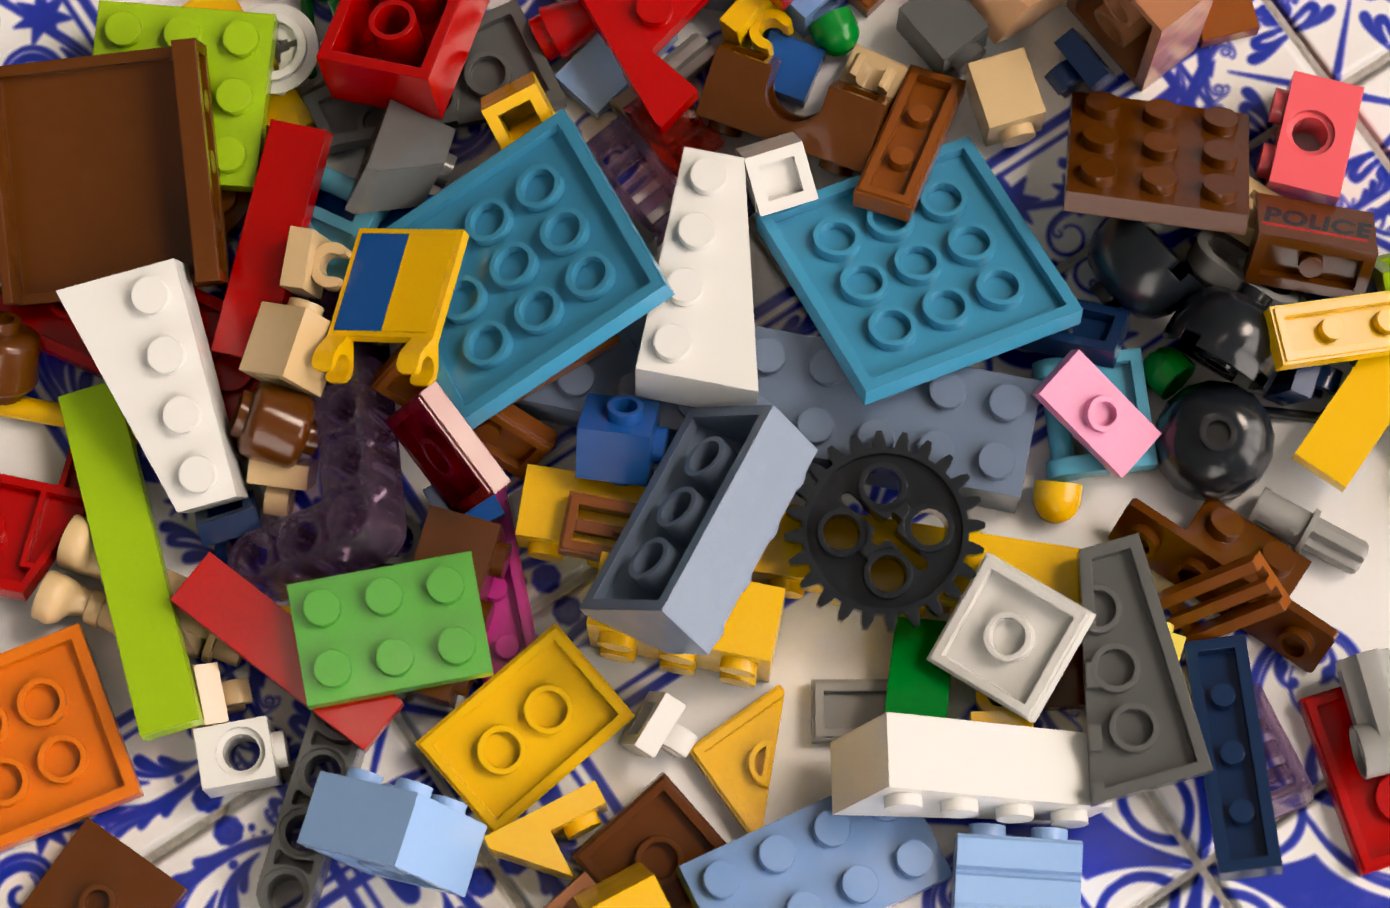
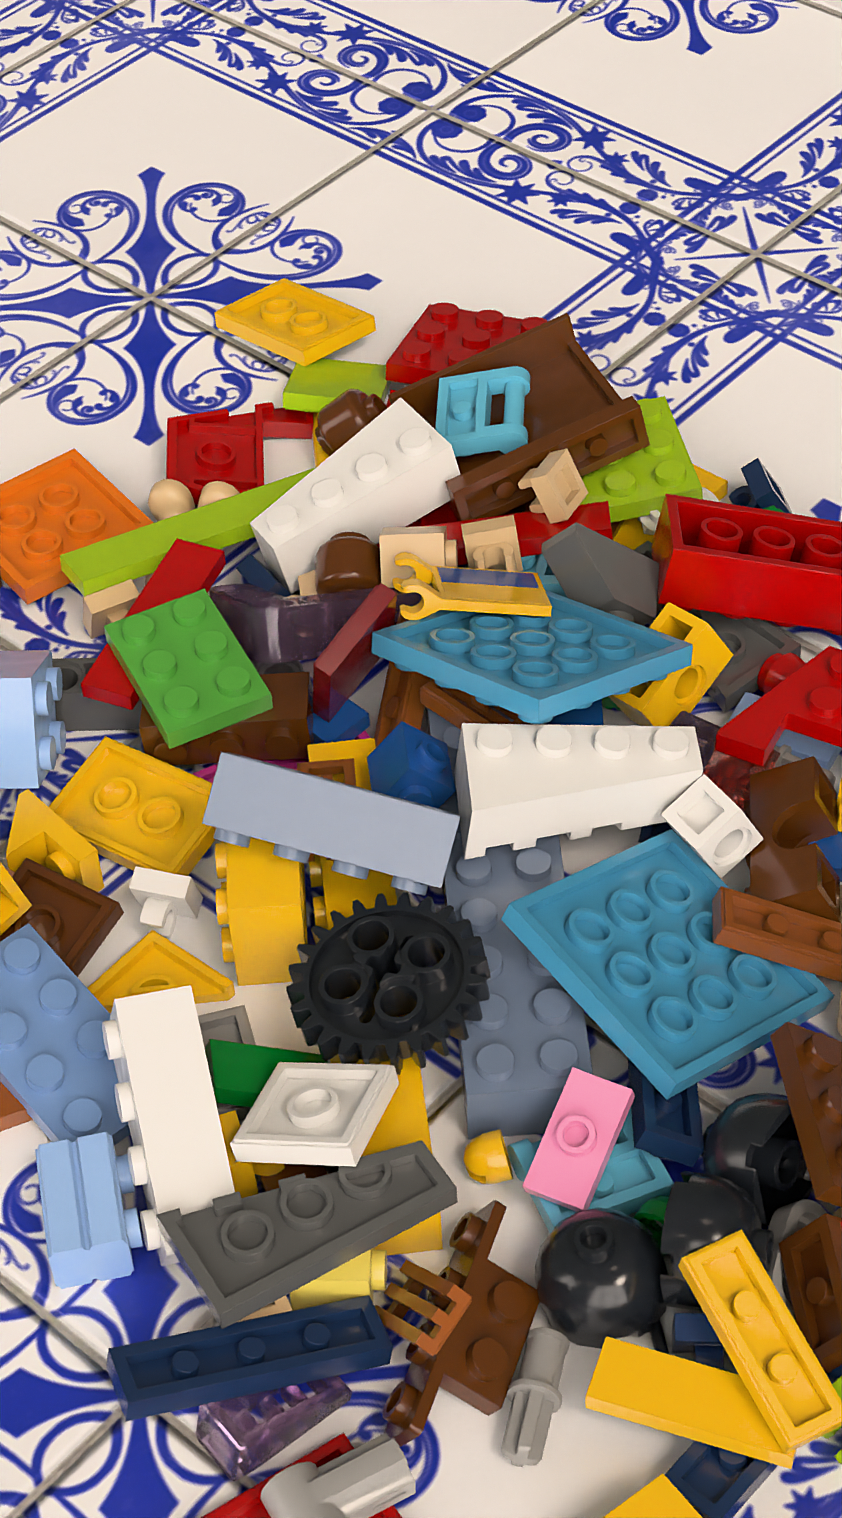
camera: 75 degrees right, 30 degrees down
(78, 226) = (466, 410): none -> medium azure plate
(214, 749) = (67, 629): white brick -> none
(250, 169) = (556, 486): none -> tan tile

